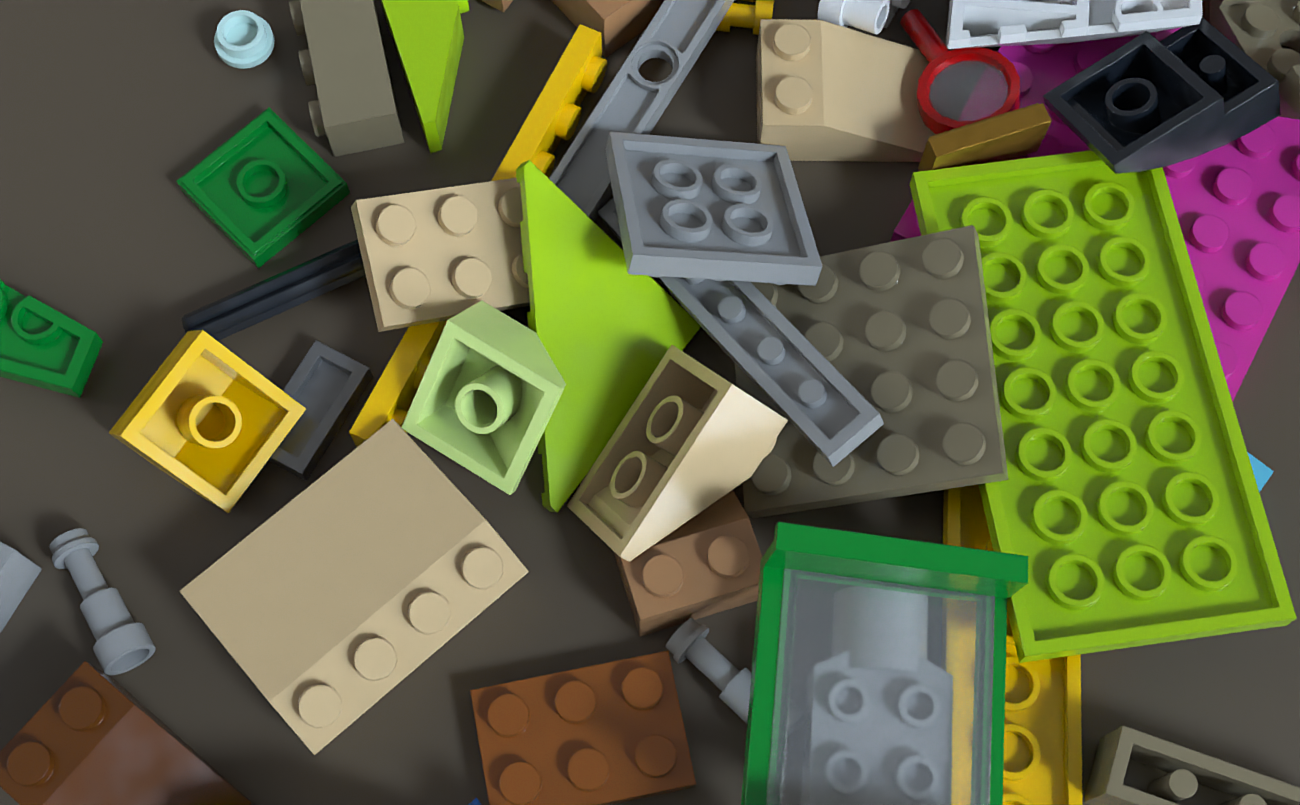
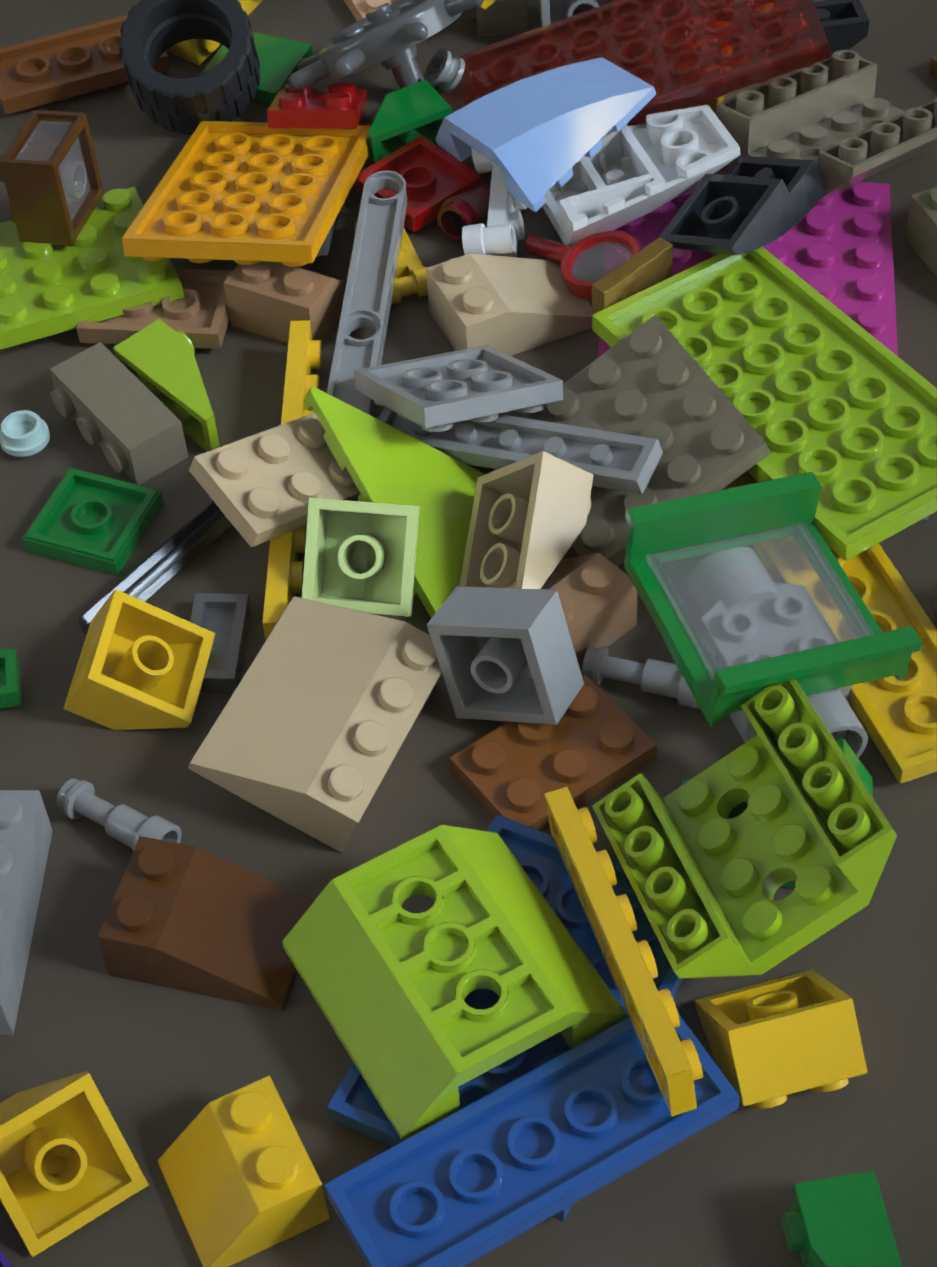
camera: 20 degrees left, 20 degrees down
(575, 613) = (506, 654): none -> light grey brick

